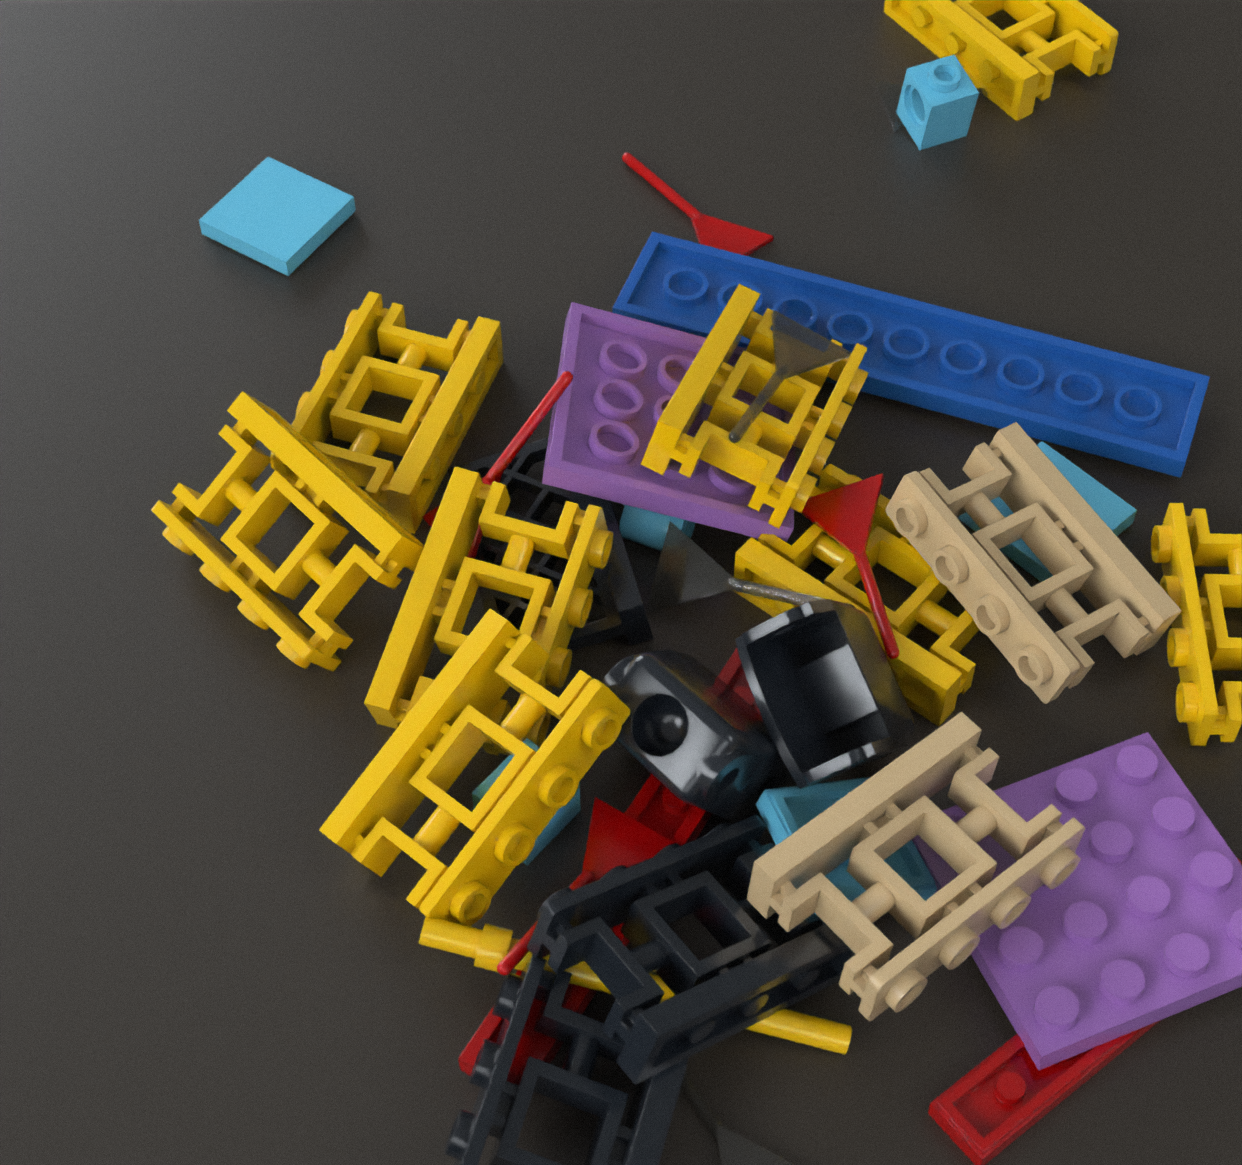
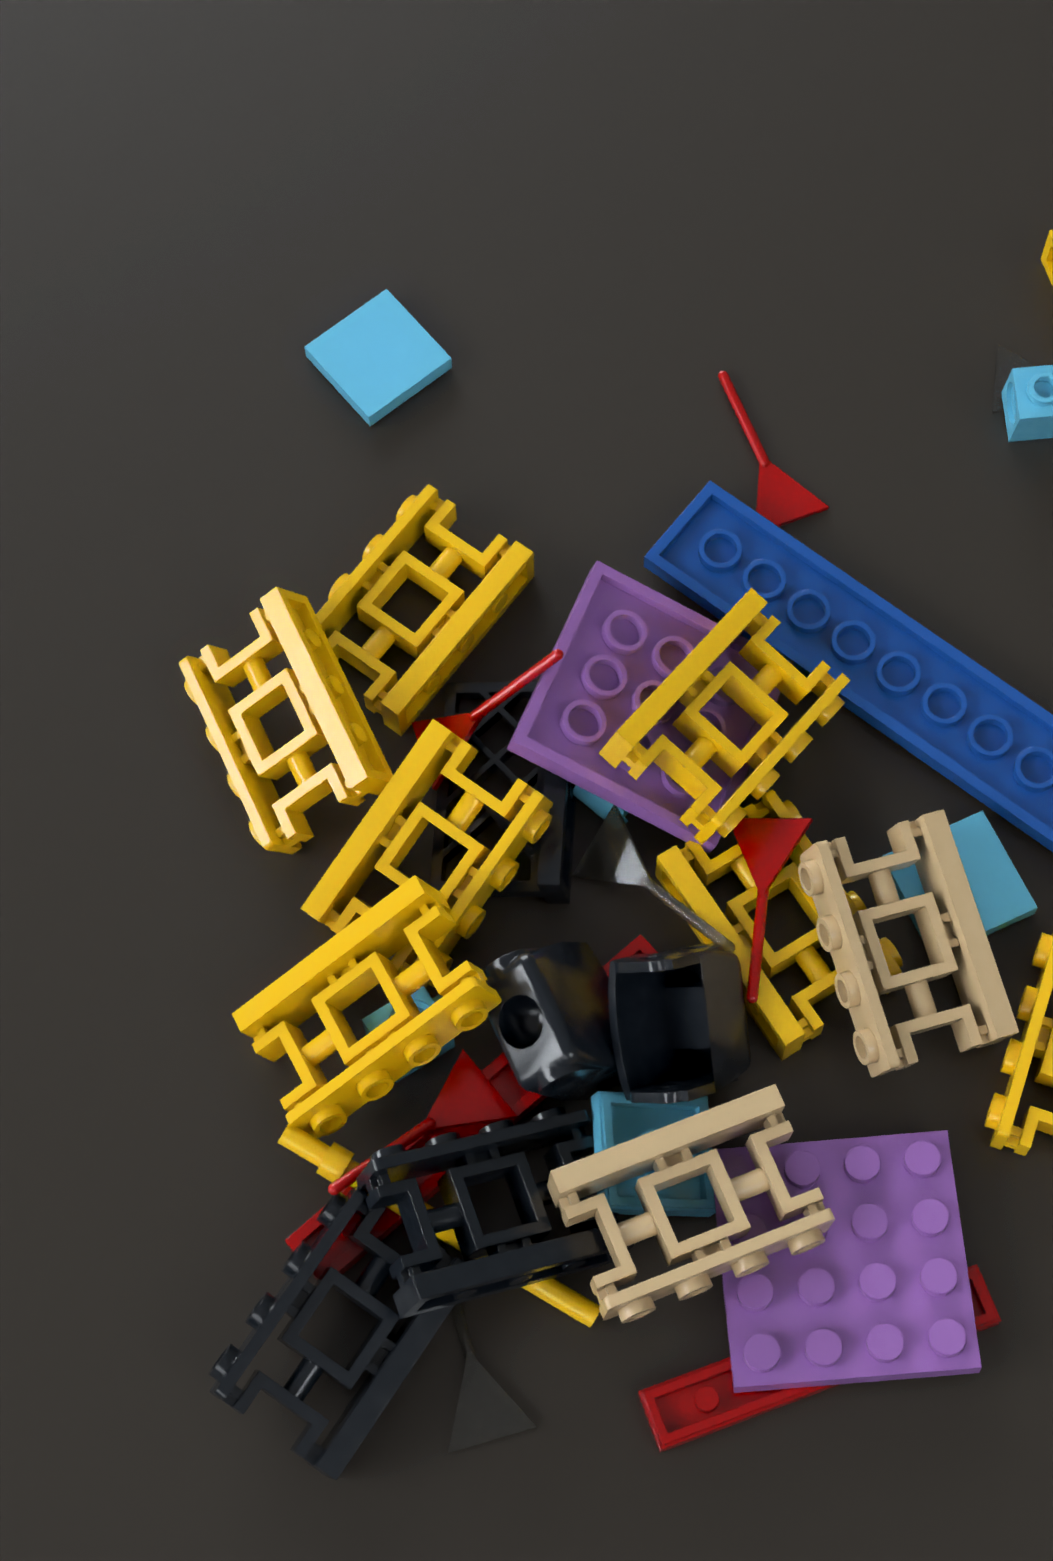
camera: 20 degrees right, 15 degrees up
(795, 352) = (781, 671): clear smoke piece -> none

